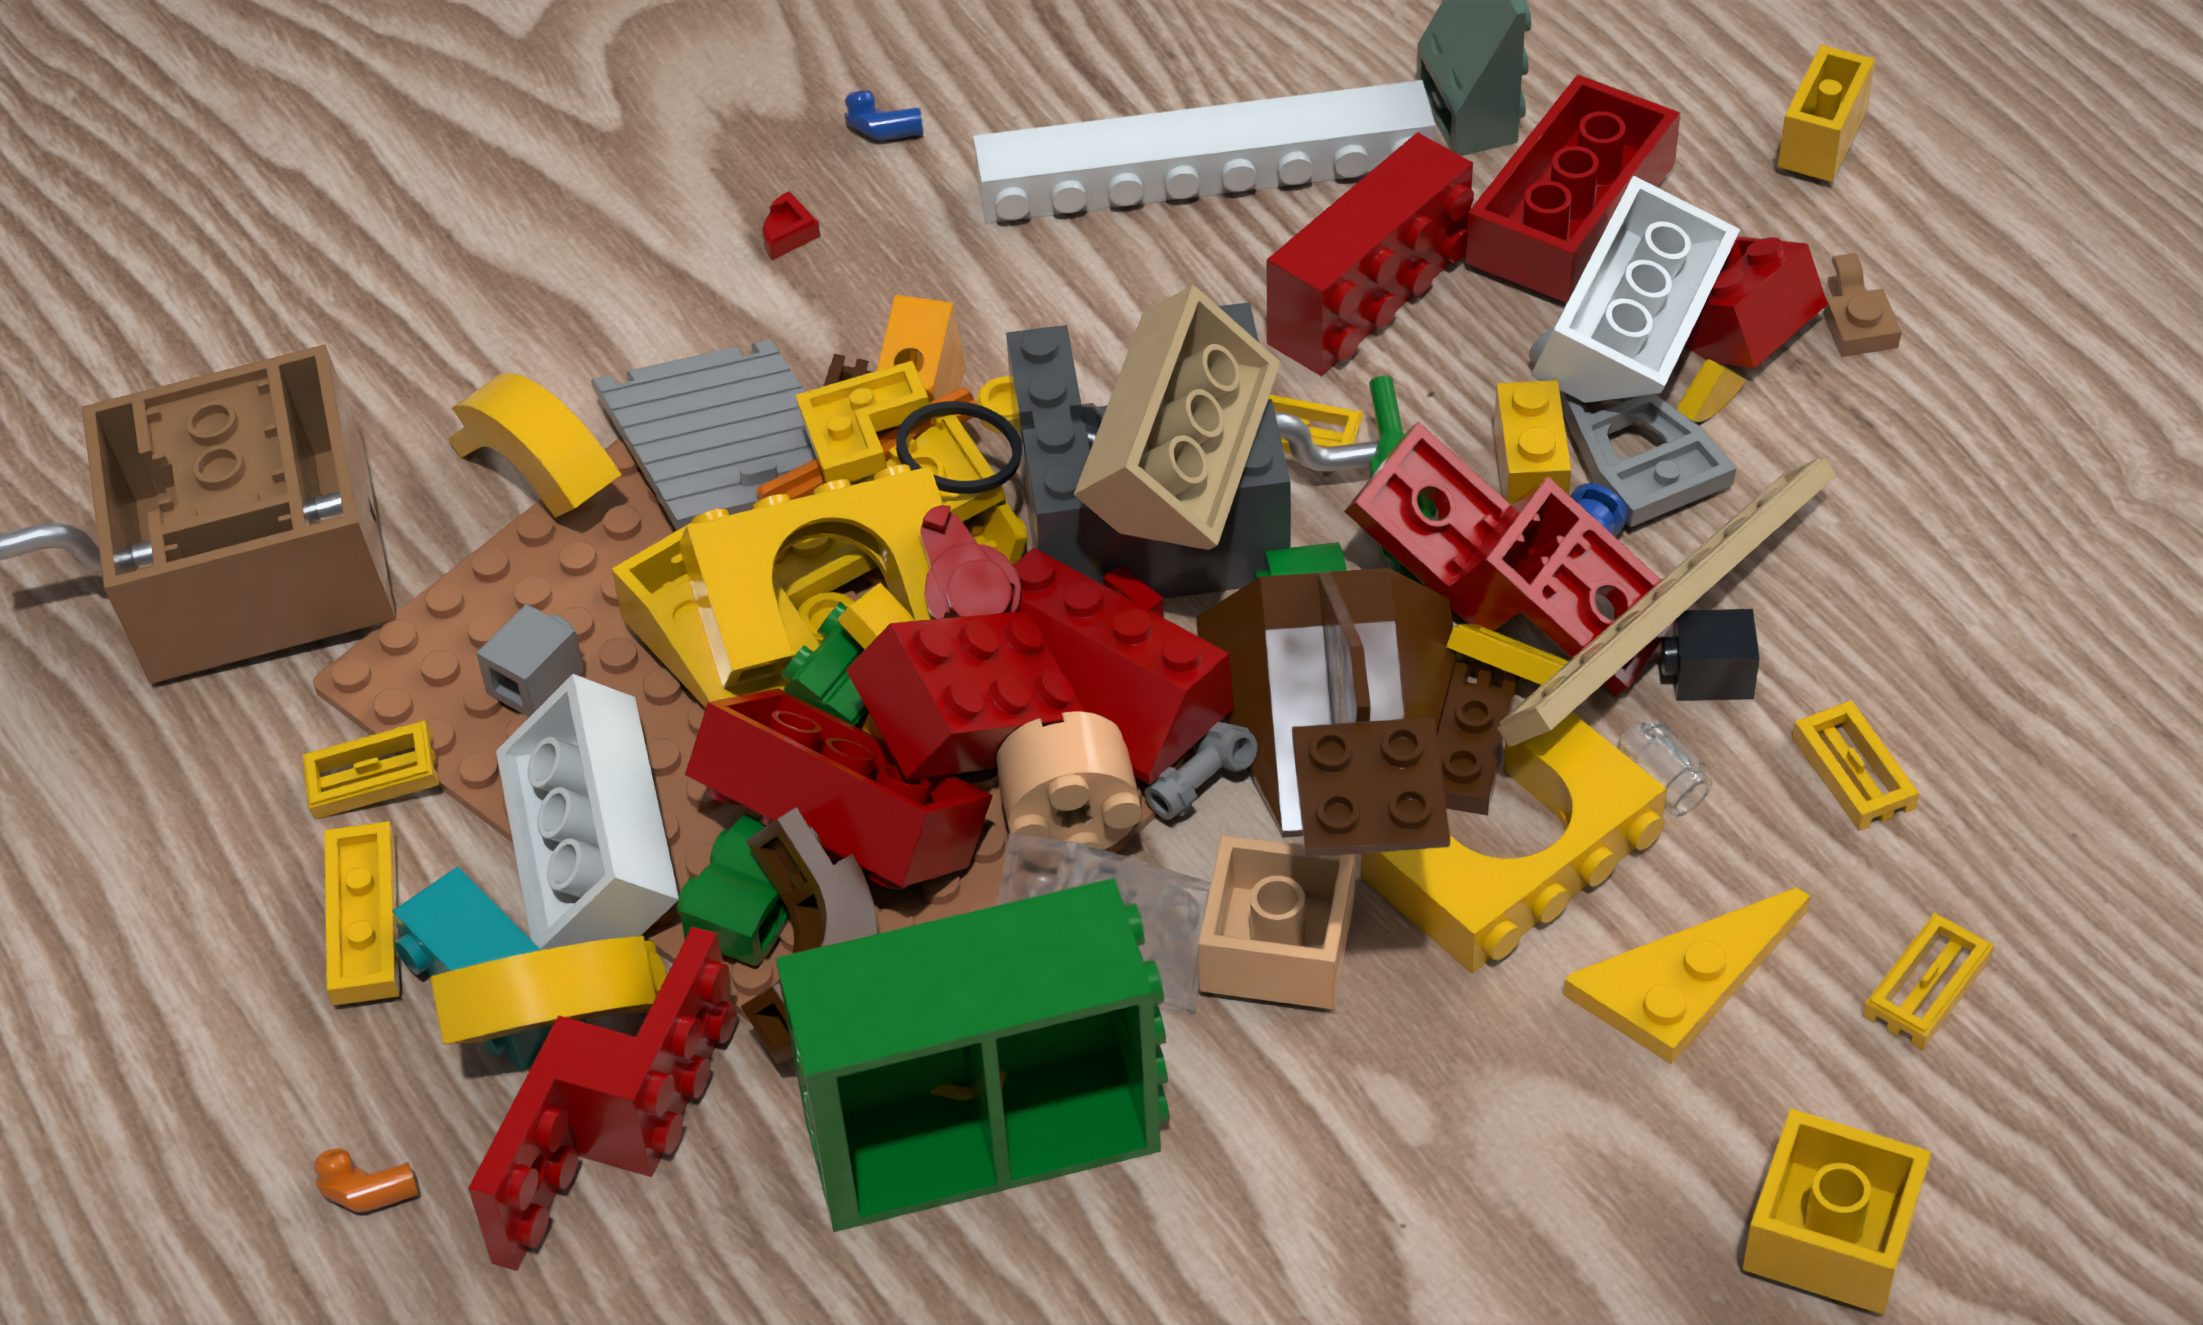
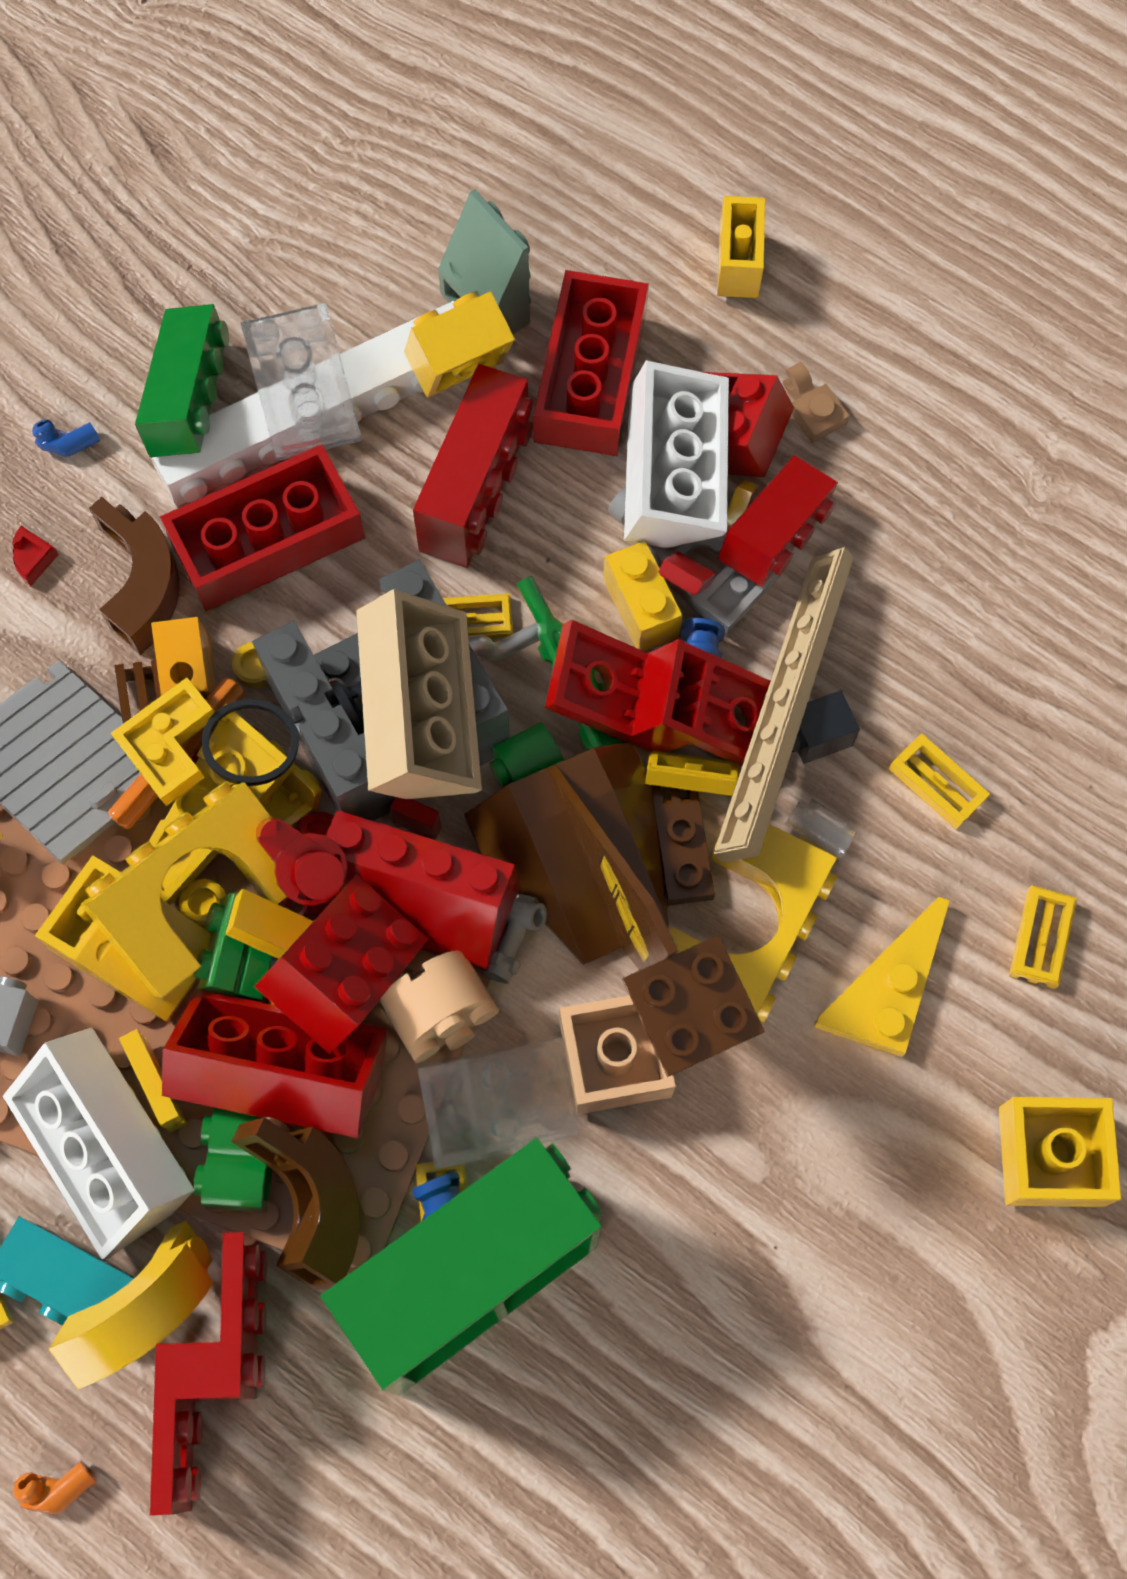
camera: 25 degrees left, 20 degrees up
(681, 789) = (150, 1077): none -> yellow tile
(921, 270) = (154, 578): none -> reddish brown arch
(1046, 79) = (182, 381): none -> green brick
(1077, 254) = (263, 527): none -> red brick
(1190, 107) = (301, 381): none -> clear slope
(1393, 97) = (450, 345): none -> yellow brick
(1596, 428) = (686, 573): none -> red tile
(1747, 409) = (779, 521): none -> red brick

